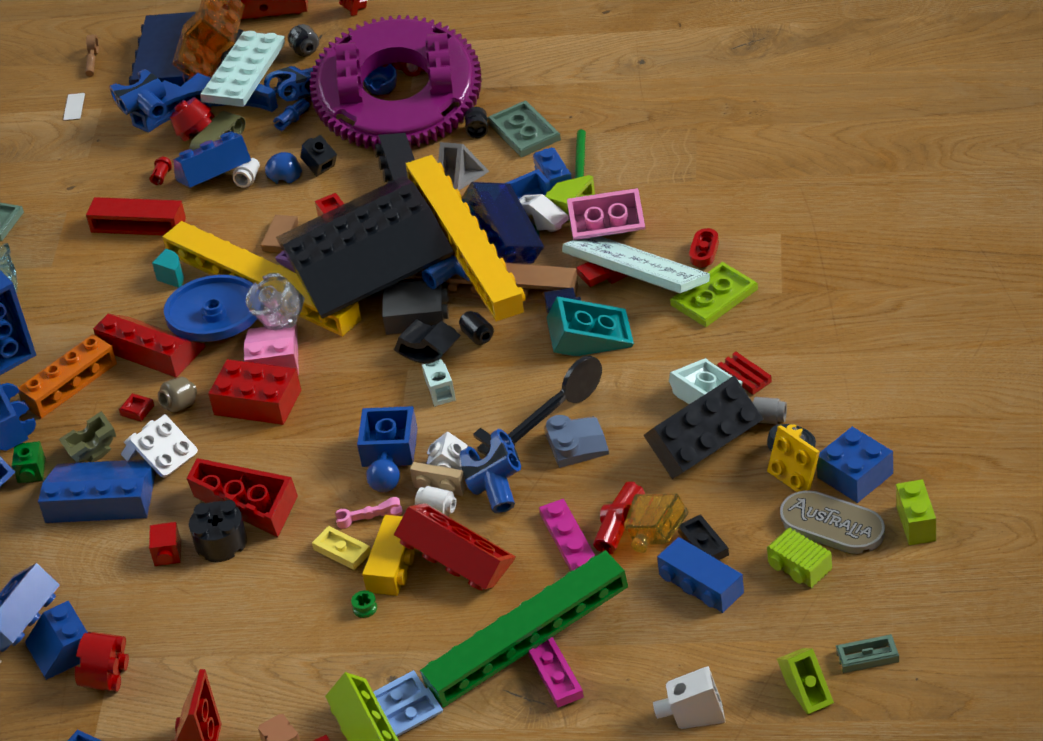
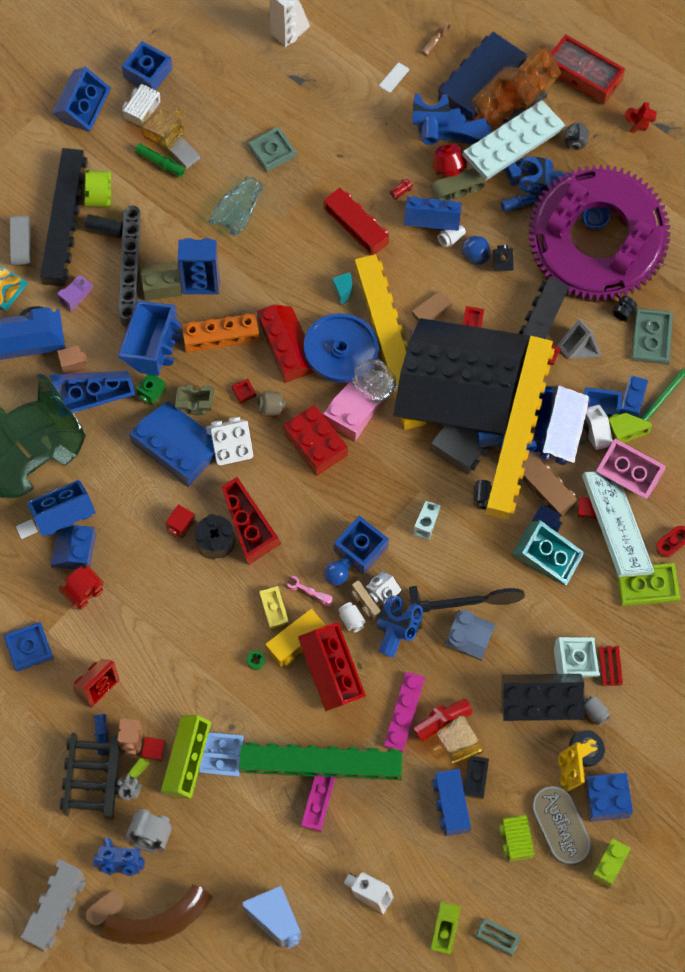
camera: 30 degrees right, 25 degrees up
(426, 342) = (443, 484): black brick -> none

